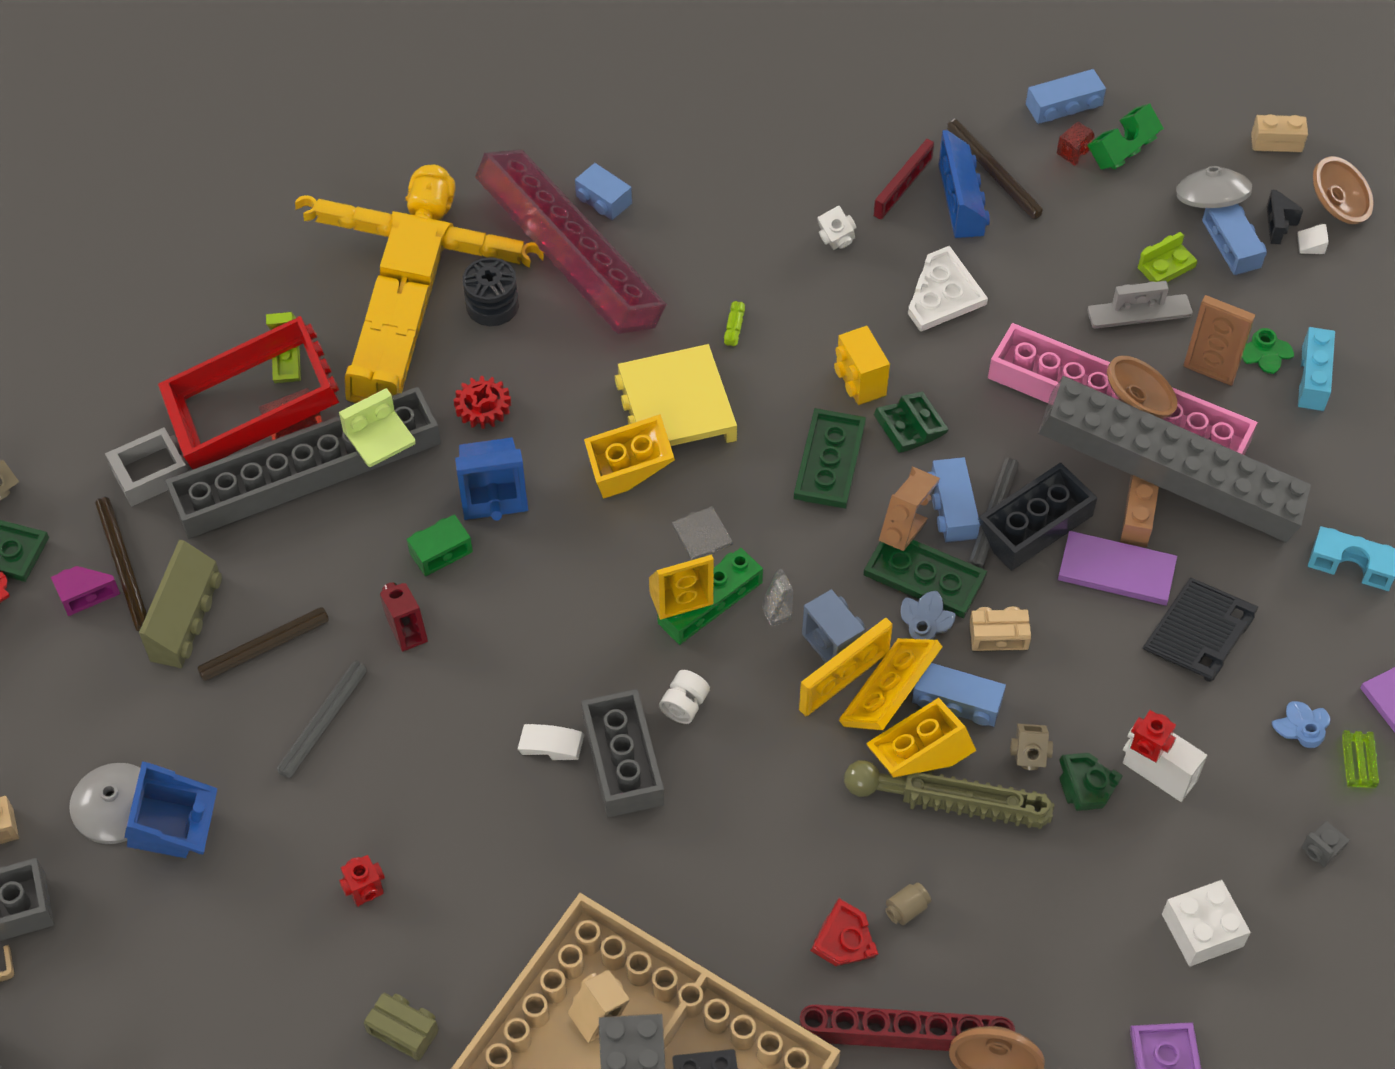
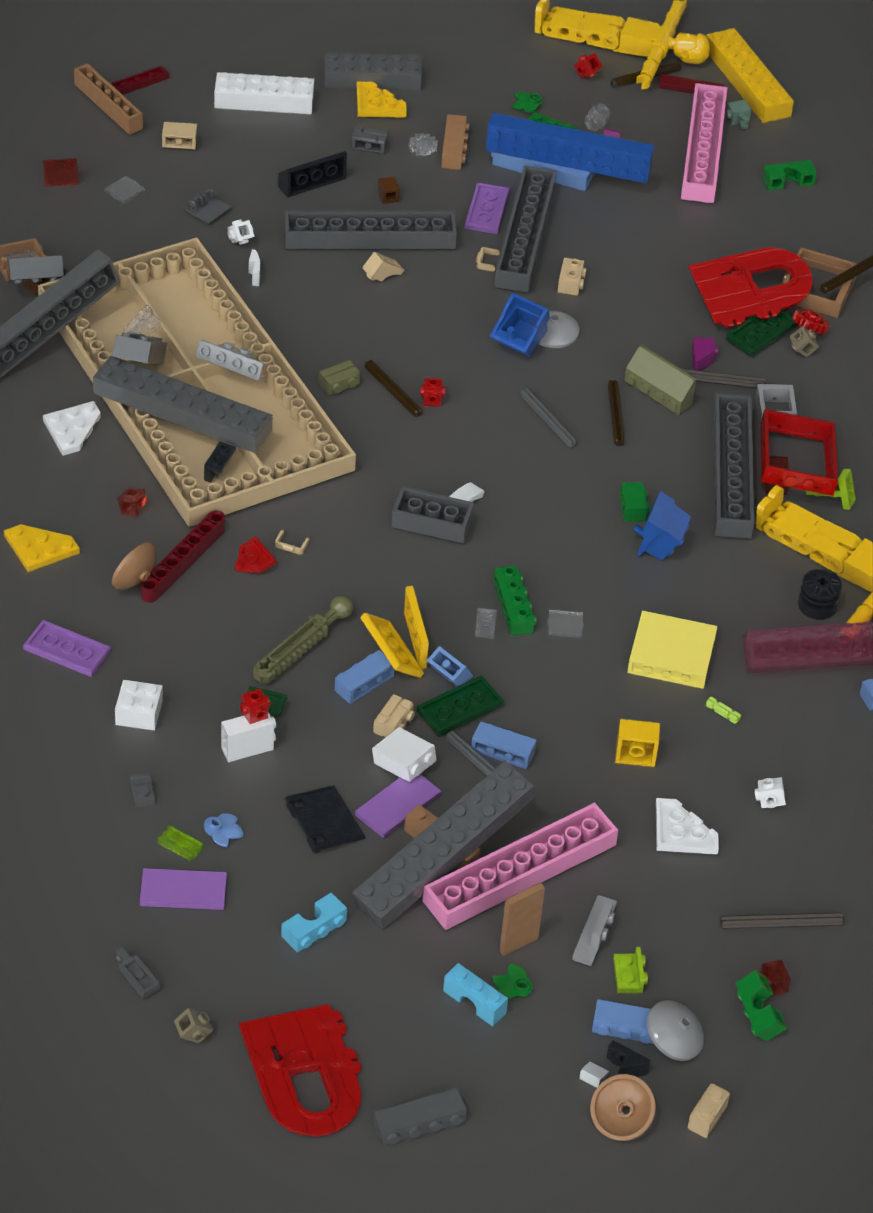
camera: 115 degrees right, 10 degrees down
(374, 947) = (393, 388): none -> dark brown axle
(375, 428) = (725, 486): yellowish green bracket -> none
(398, 603) = (592, 464): dark red torso -> none
(482, 402) = (732, 561): red gear -> none
(598, 997) = (285, 431): tan brick -> none
(629, 455) = (639, 594): yellow slope -> none
(683, 587) = (515, 559): yellow slope -> none
(685, 695) = (451, 557): white wheel -> none
(788, 908) = (290, 548): none -> tan piece
(830, 458) = (579, 703): dark green plate -> none
(830, 625) = (445, 630): sand blue brick -> none
(884, 598) = (449, 667): none -> medium blue brick
(901, 518) = (503, 701): medium nougat window -> none
(903, 179) = (799, 858): dark red tile -> none
(907, 903) = (252, 590): dark tan brick -> none
(911, 422) = (582, 759): dark green slope -> none
(923, 741) = (341, 637): yellow slope -> none
(926, 612) = (424, 687): sand blue plate -> none
(962, 187) = (769, 878): blue slope -> none
(1031, 746) = (303, 686): dark tan brick -> none
(1037, 515) = (457, 765): black slope -> none
(1054, 584) = (404, 754): none -> white brick
(1065, 96) = (827, 998): medium blue brick -> none
(1141, 386) = (508, 833): medium nougat dish -> none

